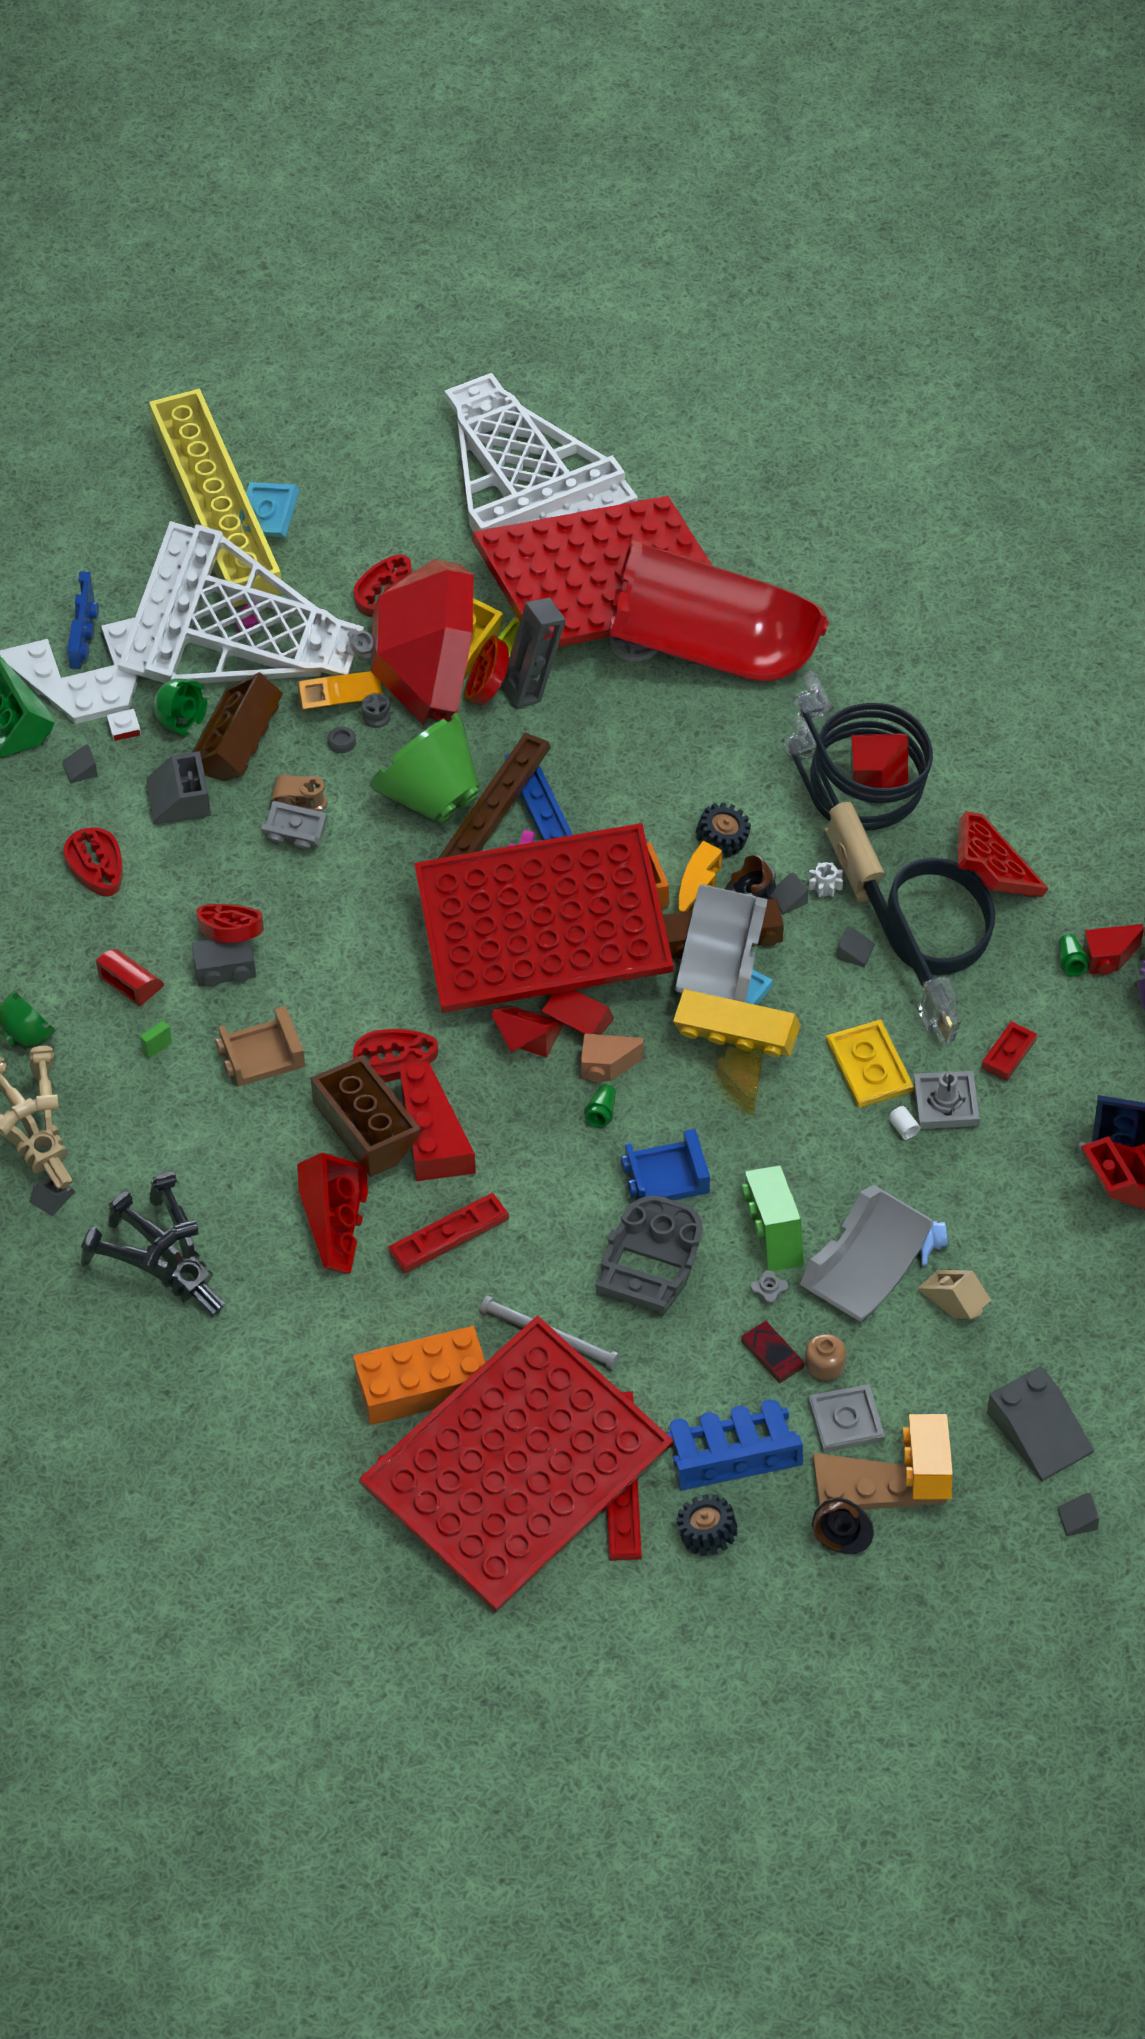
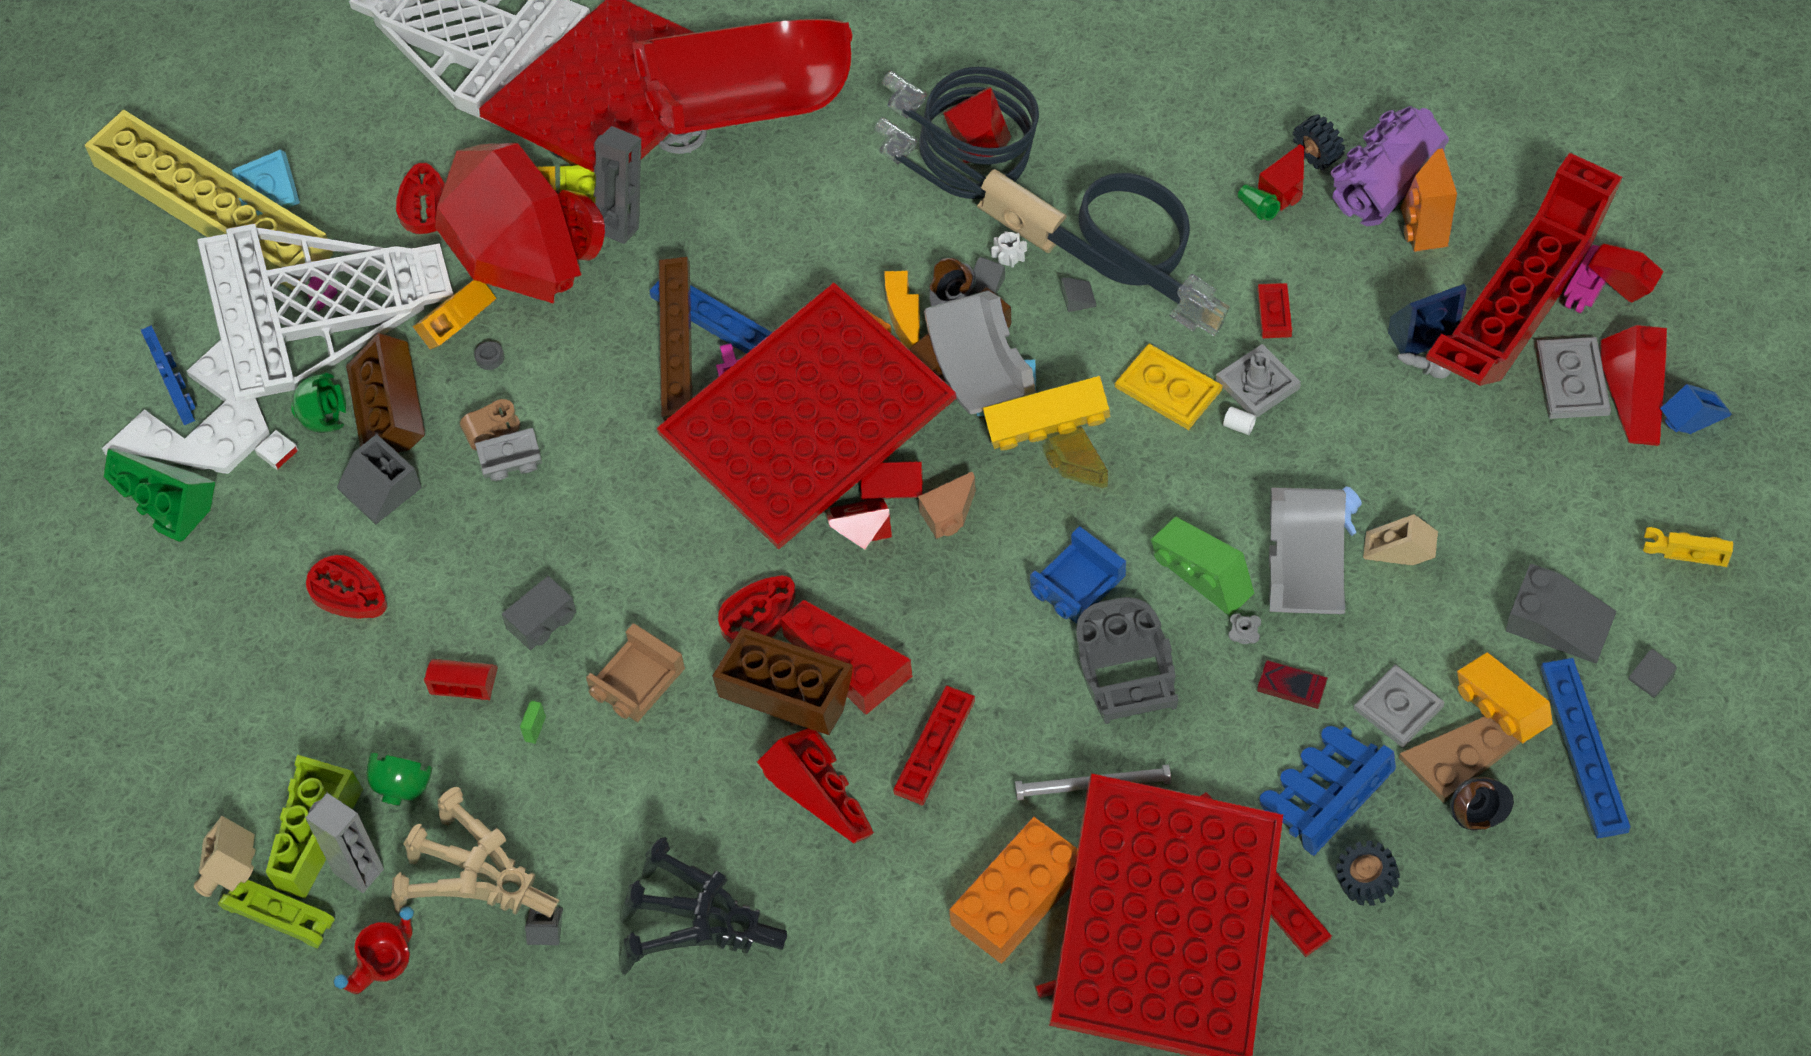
camera: 30 degrees left, 5 degrees up
(80, 765) = (264, 508): dark grey slope -> none
(229, 922) = (520, 576): red piece -> none
(364, 638) = (453, 259): light grey plate -> none
(381, 705) = (502, 305): dark grey wheel -> none
(432, 772) = (608, 340): bright green cone -> none
(601, 1107) = (977, 553): green cone -> none
(723, 828) = (889, 251): black wheel -> none
(825, 1357) = (1345, 662): medium nougat head -> none
(970, 1537) = (1585, 748): none -> blue plate
(994, 859) = (1135, 154): red wing -> none

